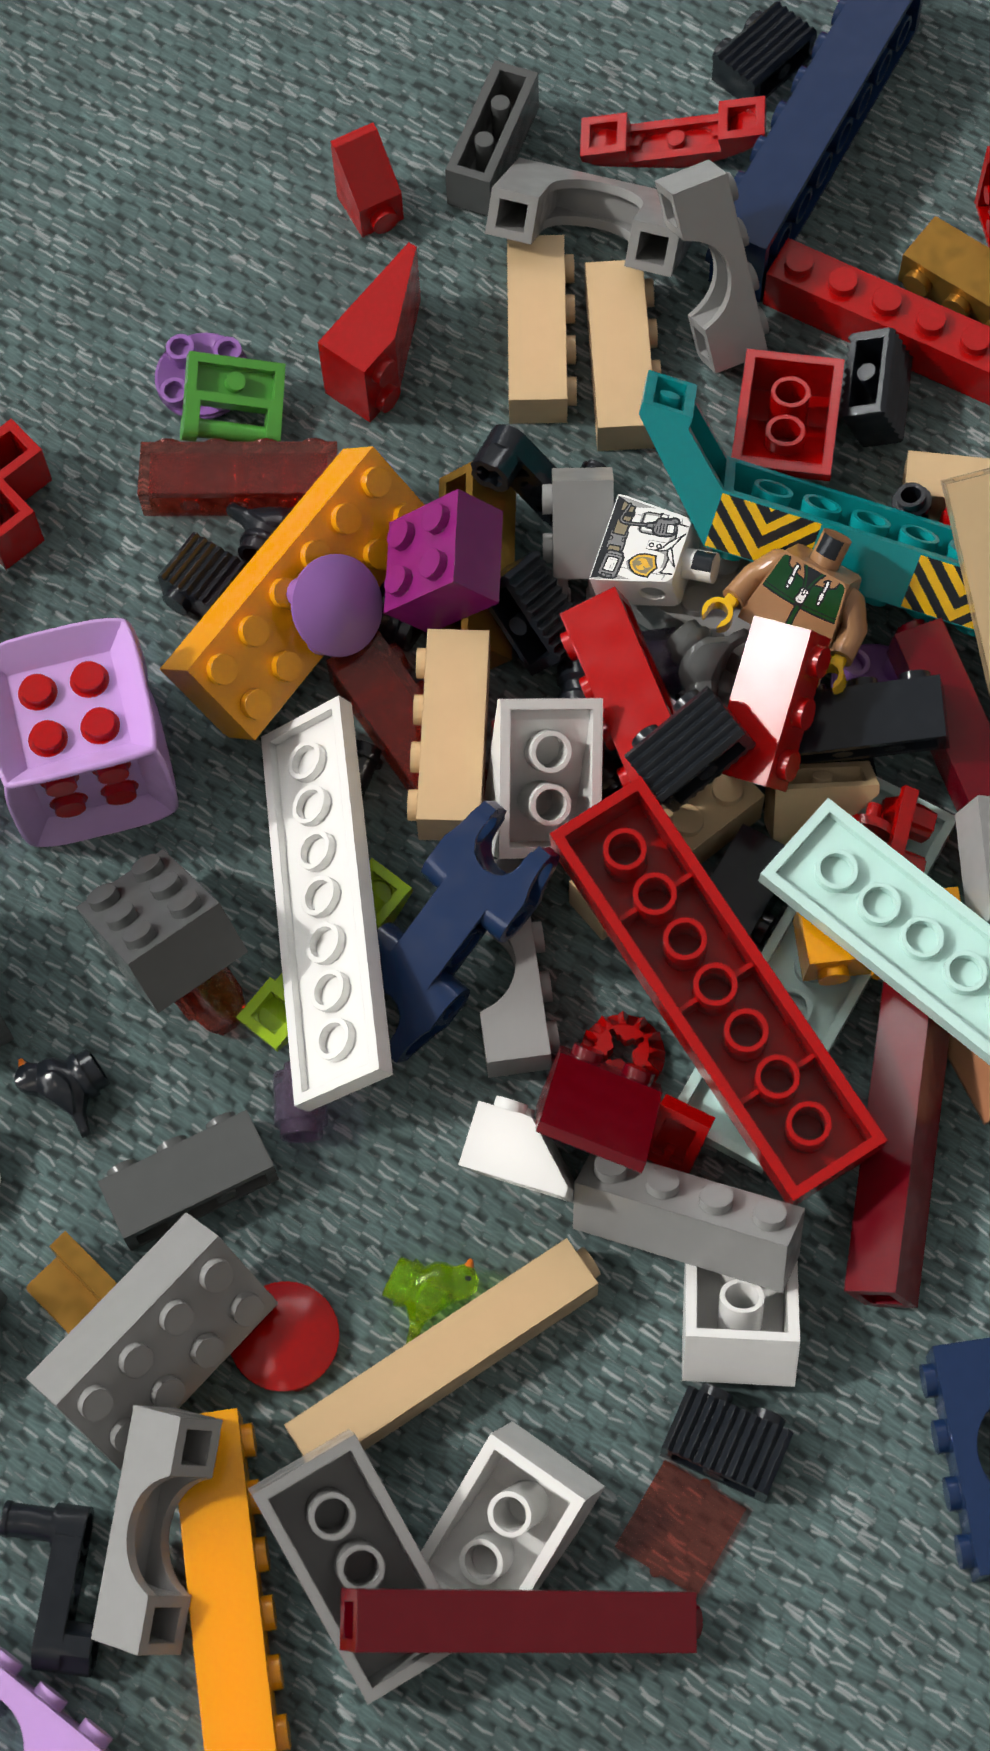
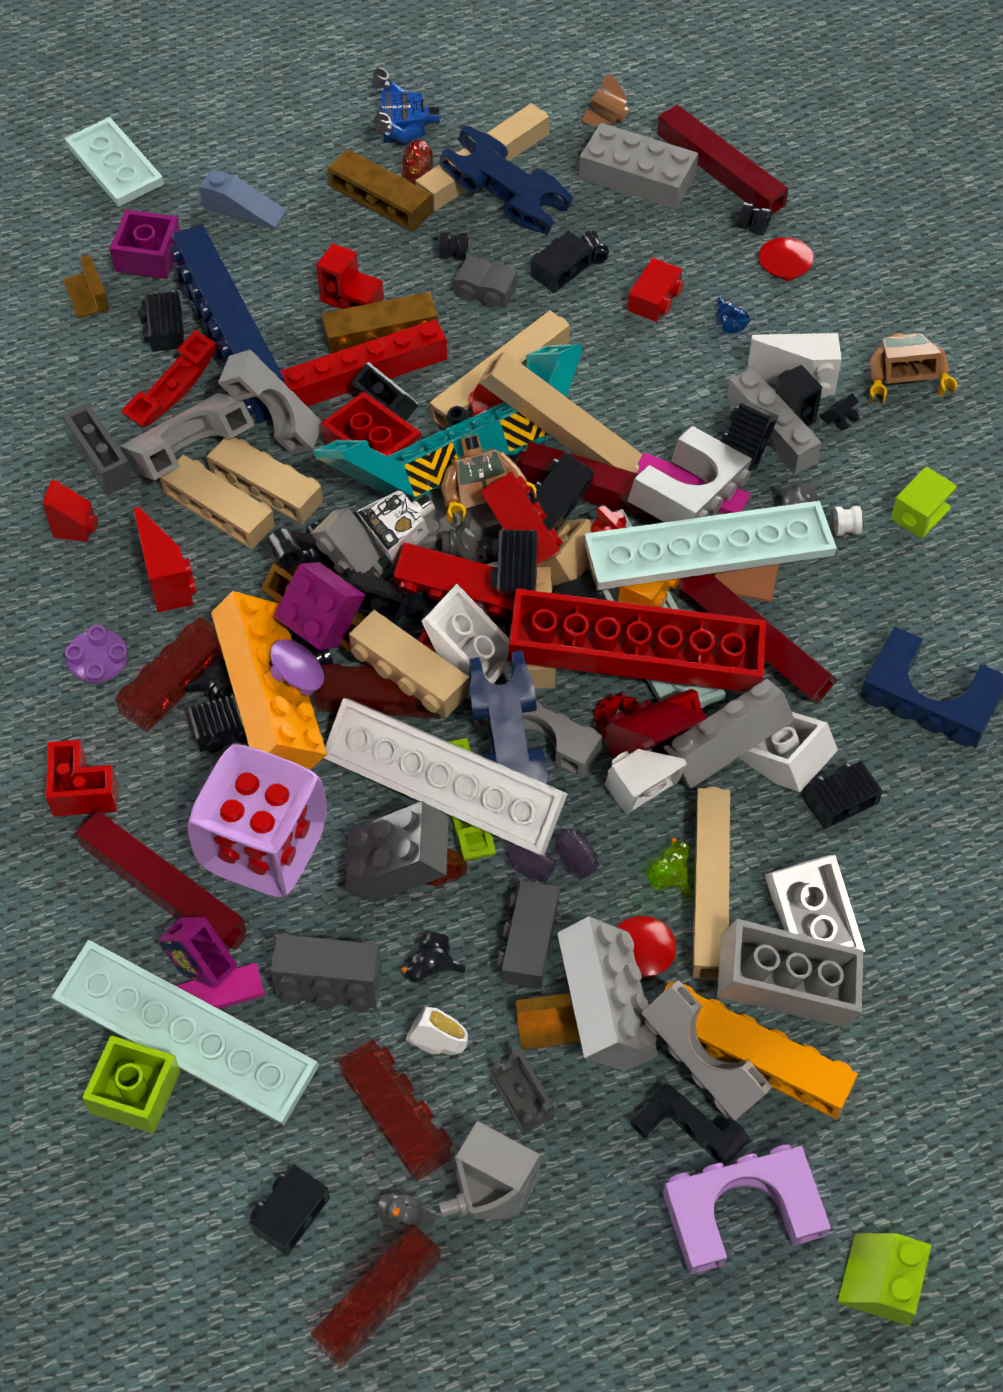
camera: 55 degrees left, 10 degrees down
(232, 385) = (124, 639): bright green plate -> none
(355, 1150) = (576, 853): none -> clear purple brick
(518, 1621) = (869, 921): dark red brick -> none
(680, 1528) = (865, 843): clear red piece -> none

